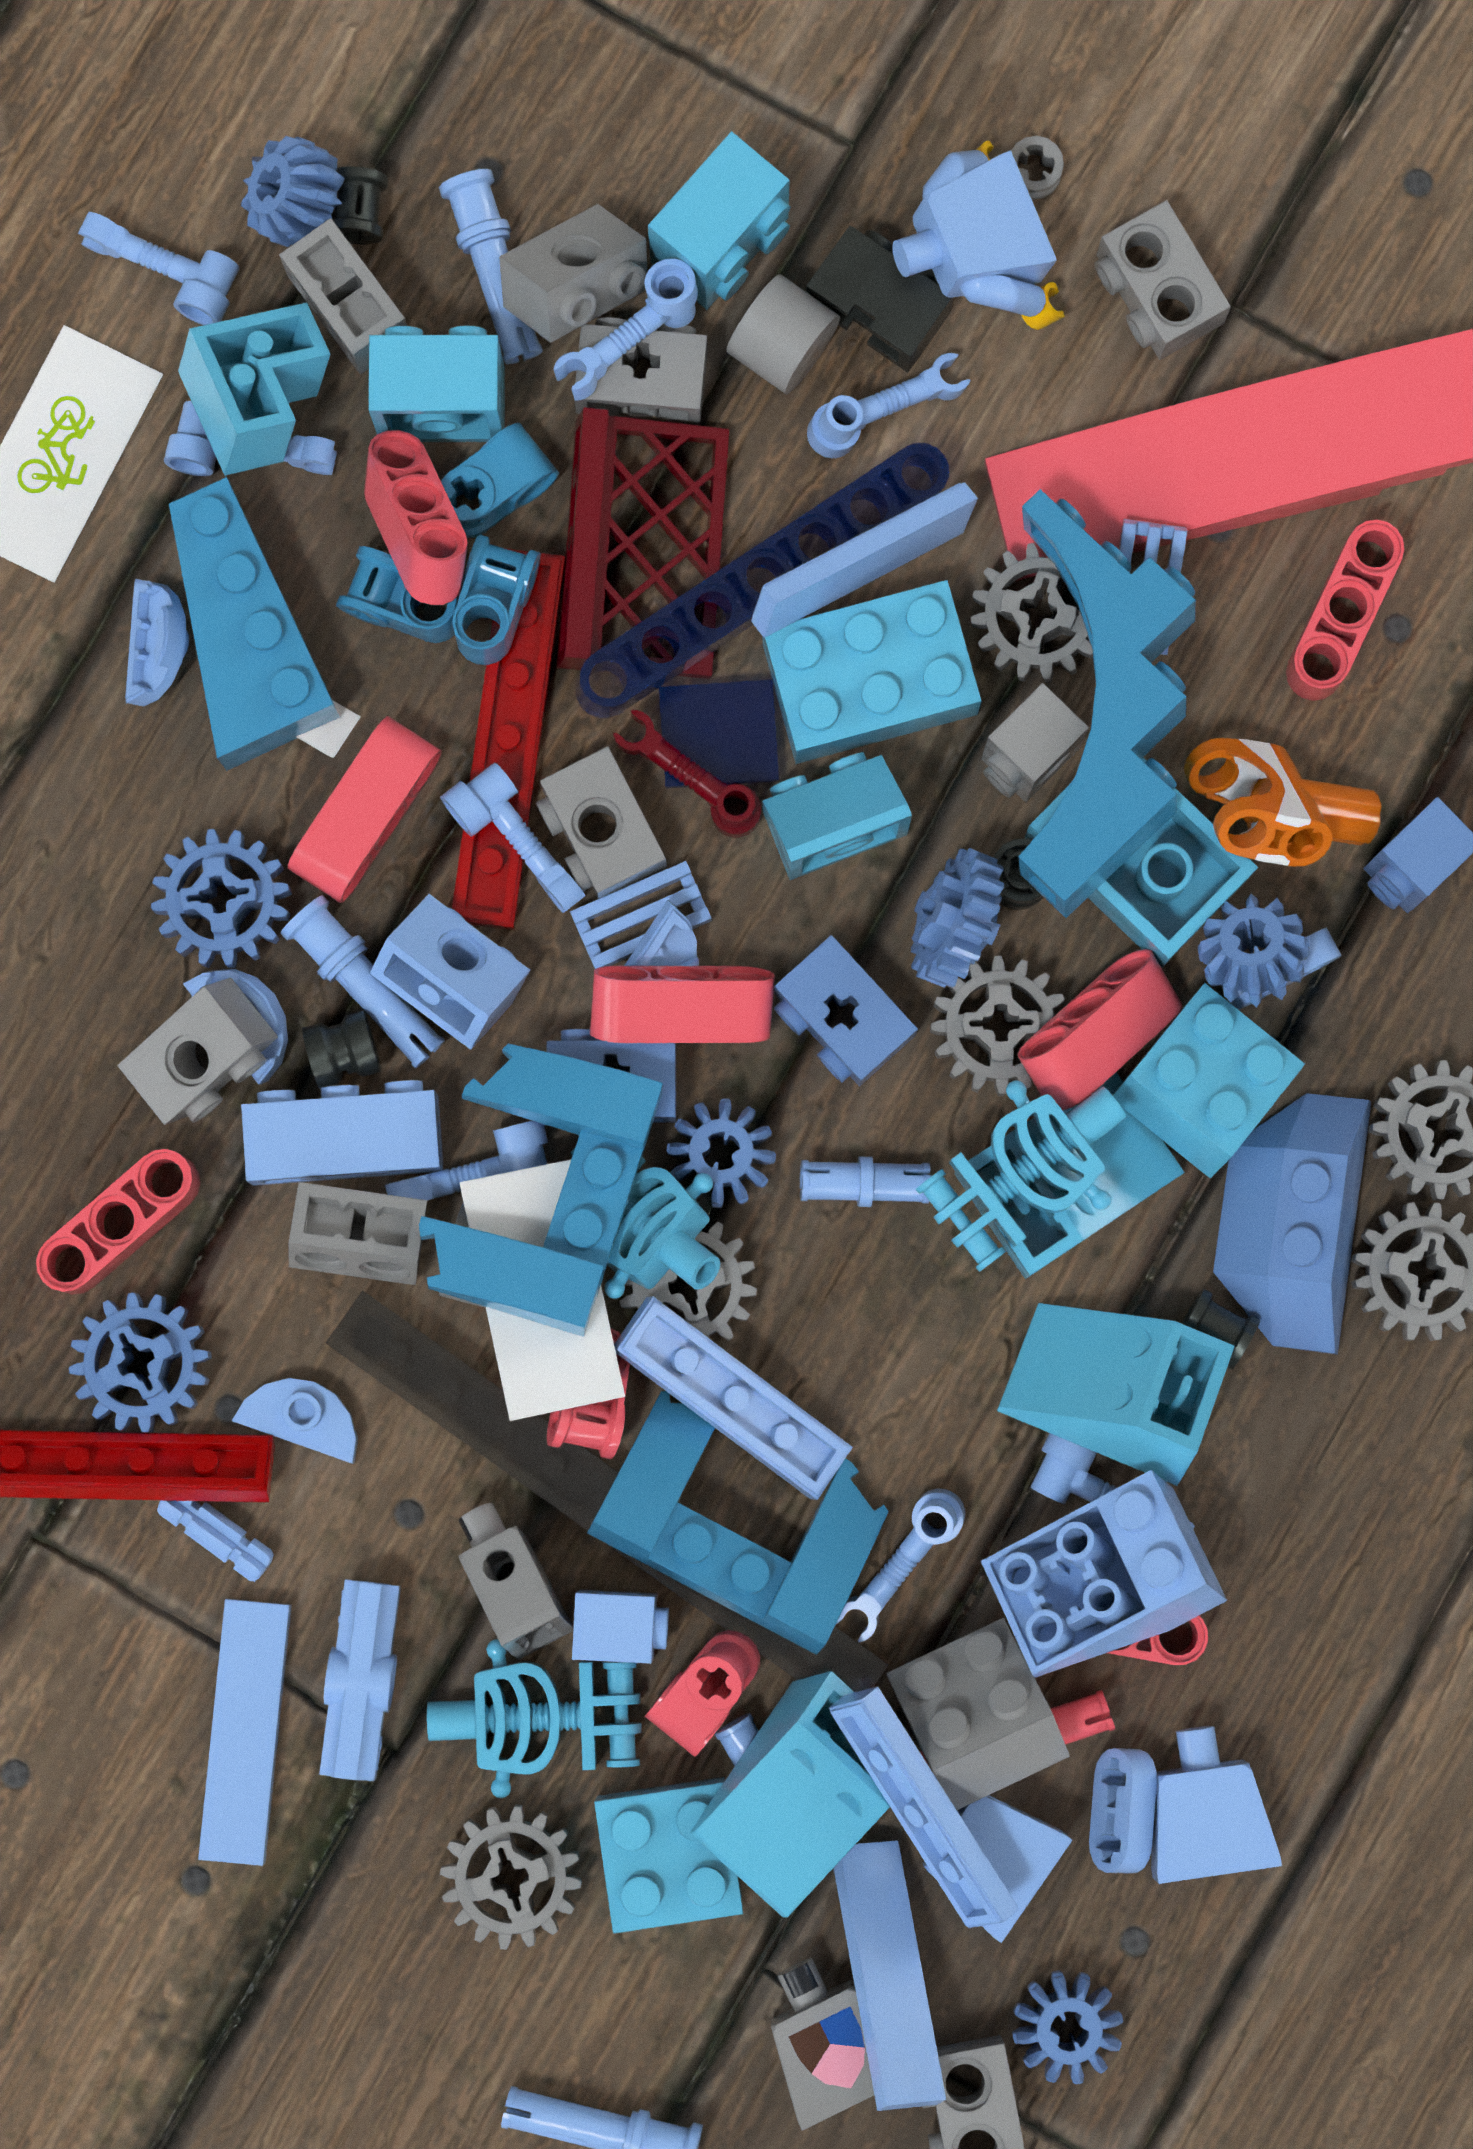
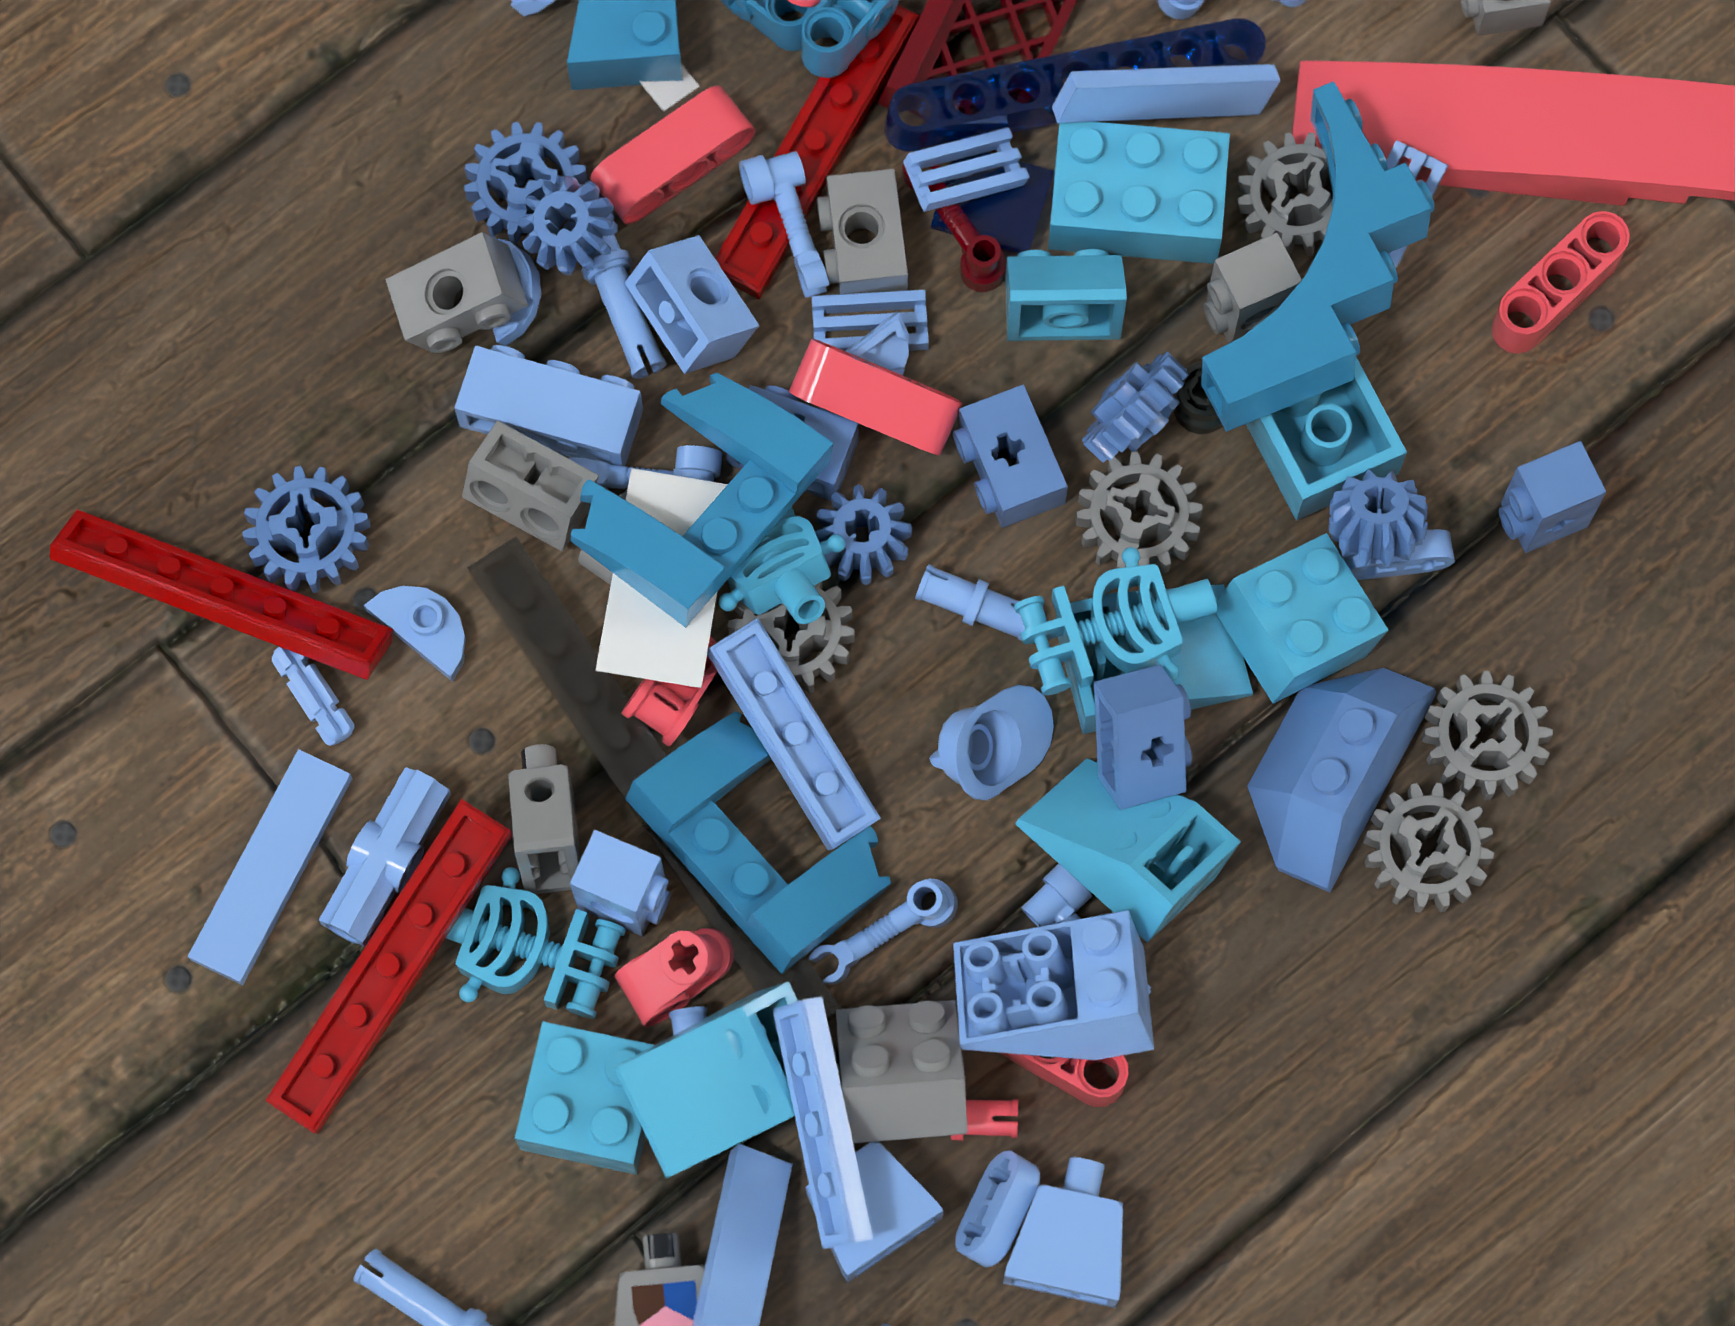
camera: 20 degrees right, 10 degrees down
(87, 1227) = (306, 404): coral beam -> none
(281, 915) = (570, 204): none -> medium blue gear
(341, 1048) = (577, 337): pearl dark grey wheel -> none
(411, 1794) = (389, 967): none -> red tile
(483, 1884) = (420, 1066): light grey gear -> none
(720, 686) = (995, 140): none -> light blue tile
(941, 1329) = (996, 741): none -> light blue piece
(1096, 1276) = (1141, 736): none -> medium blue brick
(1100, 1029) = (1223, 540): coral beam -> none
(1222, 1324) = (1236, 822): pearl dark grey bush -> none
(1286, 816) = (1443, 414): orange connector -> none

